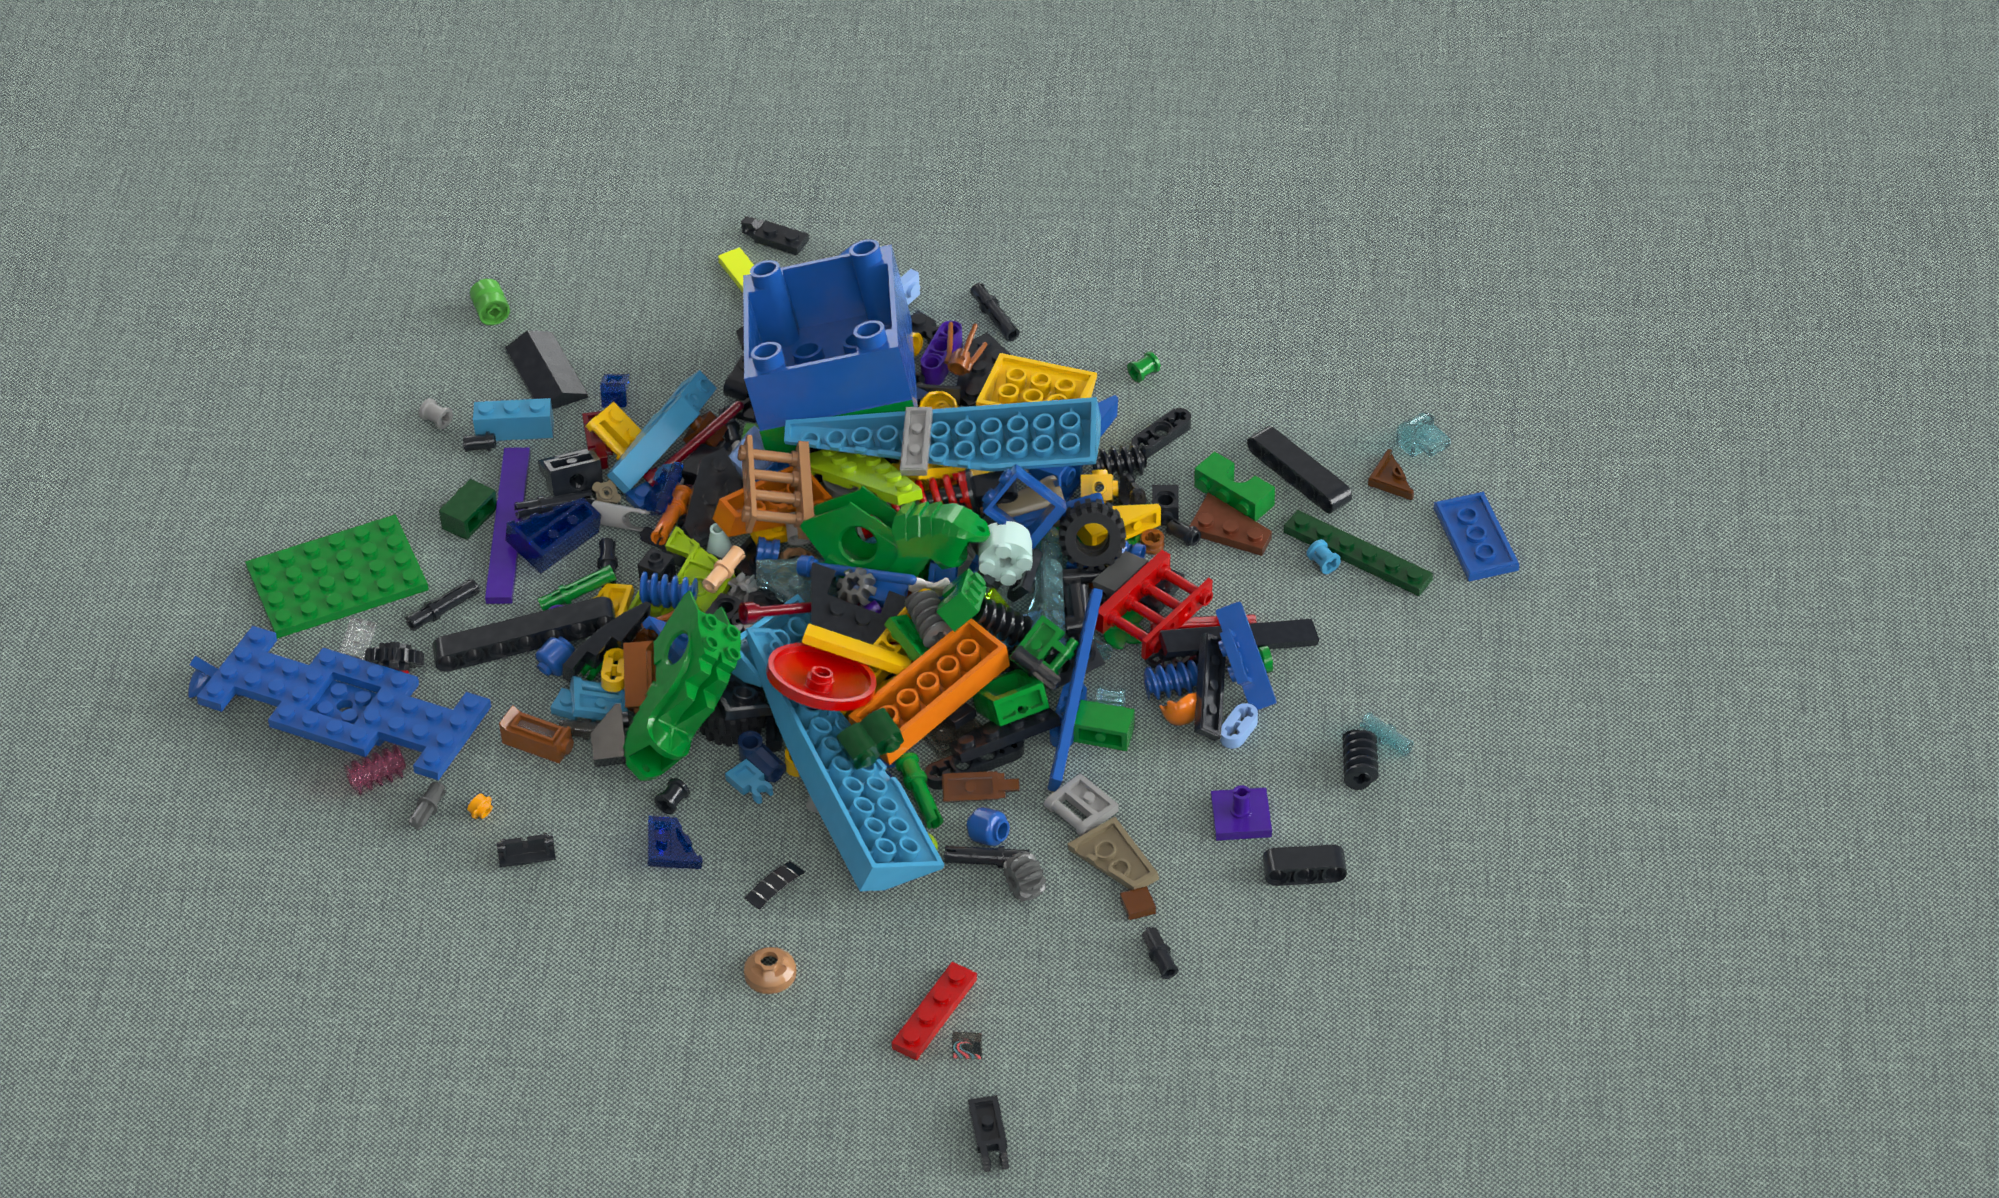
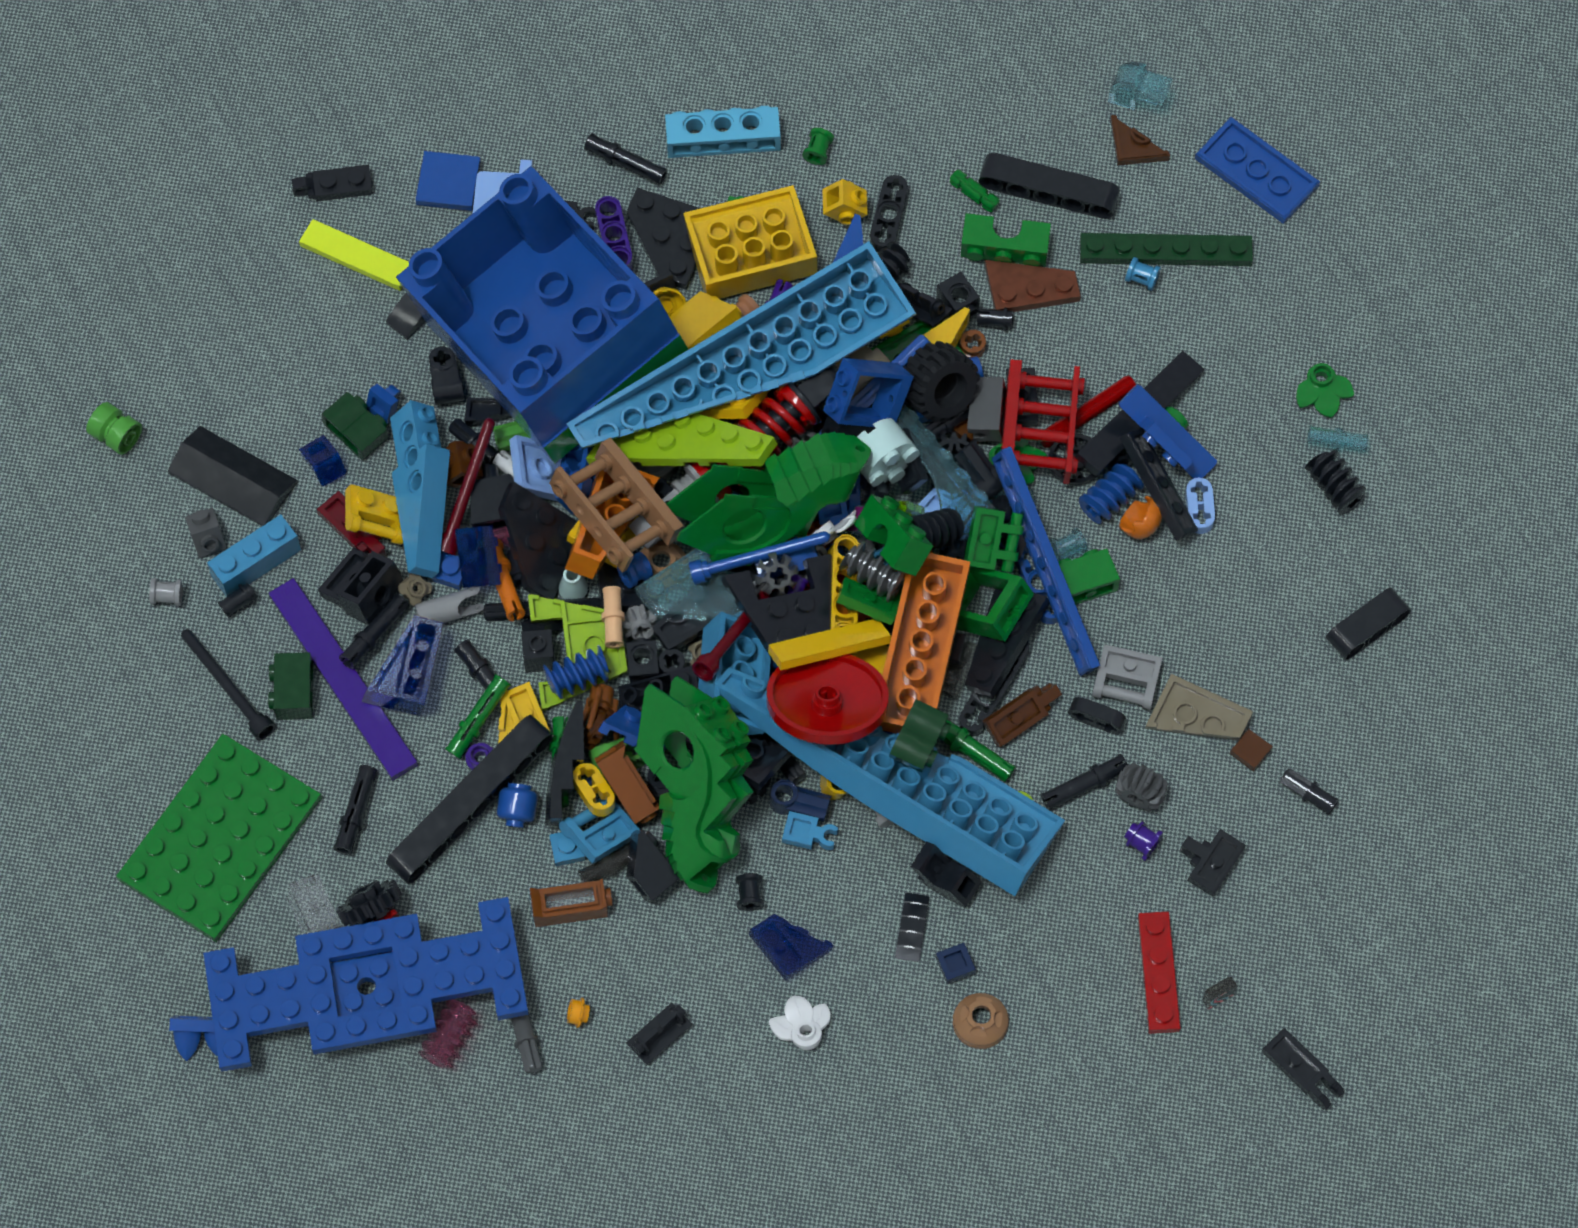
camera: 35 degrees left, 20 degrees up
(425, 522) = (260, 725): none -> black piece
(495, 388) = (205, 532): none -> dark grey bracket
(635, 899) = (799, 1019): none -> white plate
(655, 377) = (355, 425): none -> dark green brick
(686, 369) = (383, 401): none -> blue tile
(782, 920) = (955, 963): none -> dark blue plate
(822, 854) = (945, 876): none -> black brick
(916, 441) = (723, 382): light grey tile -> none
(960, 361) = (648, 239): dark orange plant -> none
(987, 826) = (1064, 751): blue head -> none
(998, 915) = (1143, 839): none -> dark purple brick
(1035, 817) = (1097, 715): none -> black beam
(1036, 668) = (1001, 563): black axle -> none
(1041, 957) = (1212, 860): none -> black hinge
(1080, 326) = (713, 142): none -> medium azure brick
(1133, 406) = (844, 200): none -> yellow brick
(1239, 448) = (974, 190): none -> green axle
(1241, 813) = (1270, 600): dark purple tile -> none
(1404, 698) = (1323, 394): none -> green plate

